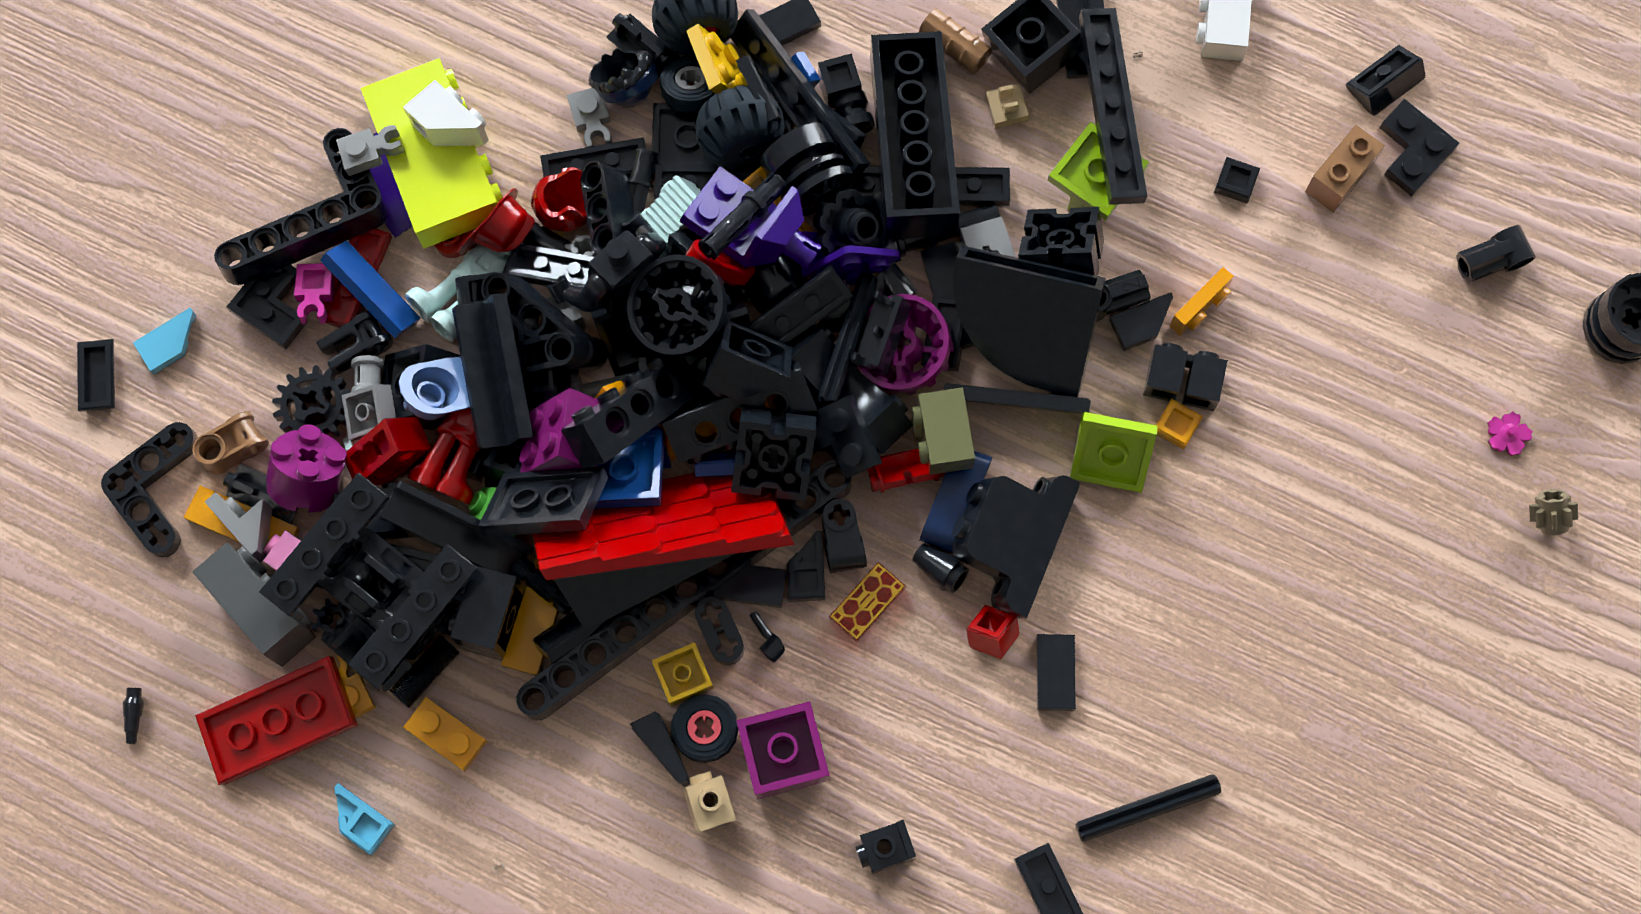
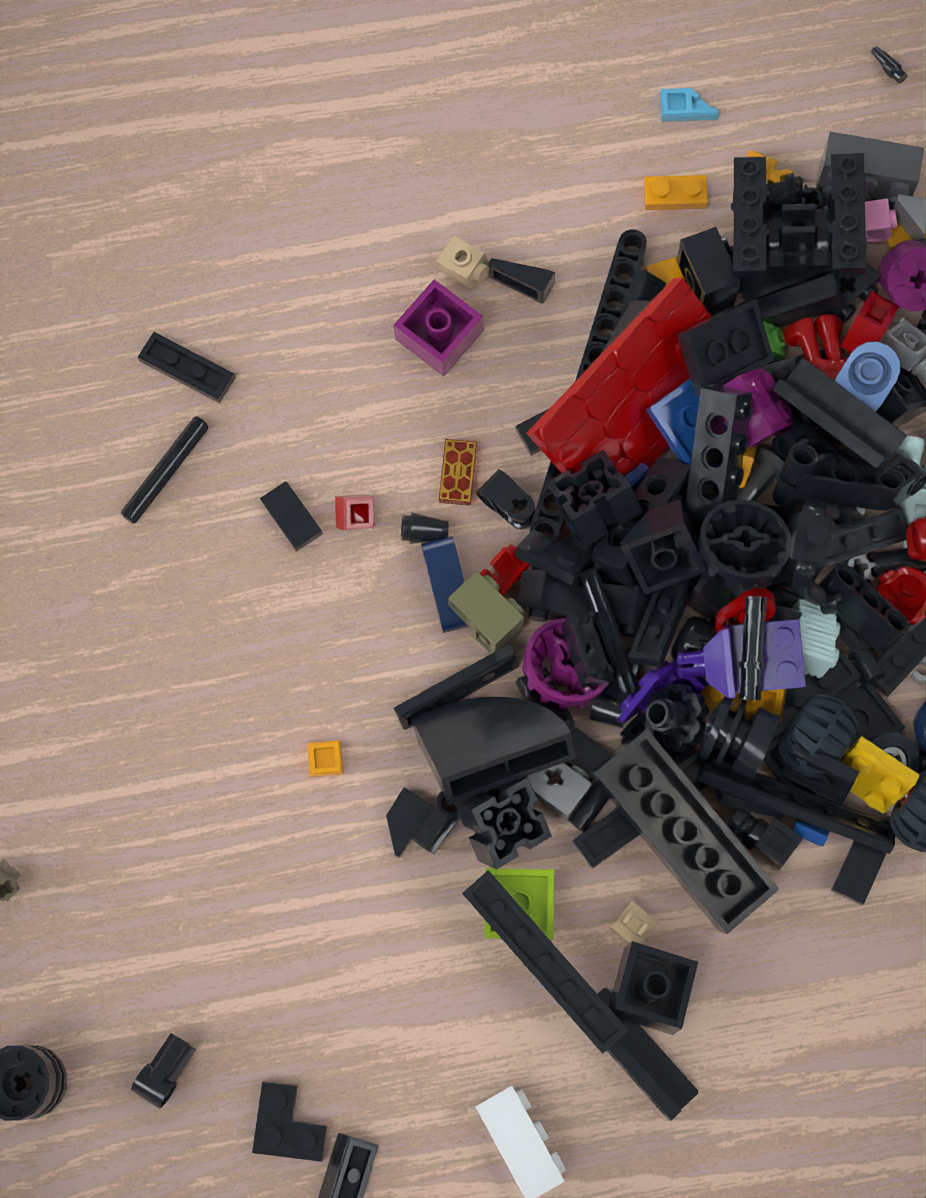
camera: 145 degrees right, 0 degrees up
(276, 720) = (791, 120): red tile -> none
(425, 672) = (722, 220): black piece -> none
(682, 674) = (547, 334): yellow piece -> none
(685, 728) = (506, 297): black bush -> none
(727, 626) = (545, 373): black beam -> none
(773, 646) = (500, 398): black hand -> none
(806, 572) = (515, 461): black tile -> none
(901, 851) = (327, 329): black brick -> none
(957, 41) = (715, 948): medium nougat axle -> none
(1013, 535) = (386, 582): black brick -> none
(1113, 451) = (358, 699): lime bracket -> none
(1203, 380) = (327, 803): black piece -> none
(1213, 292) = (370, 849): light orange plate -> none
(1237, 180) = (410, 992): black tile -> none
(1344, 168) = (329, 1057): medium nougat brick -> none
(1507, 434) = (69, 929): dark pink plant -> none

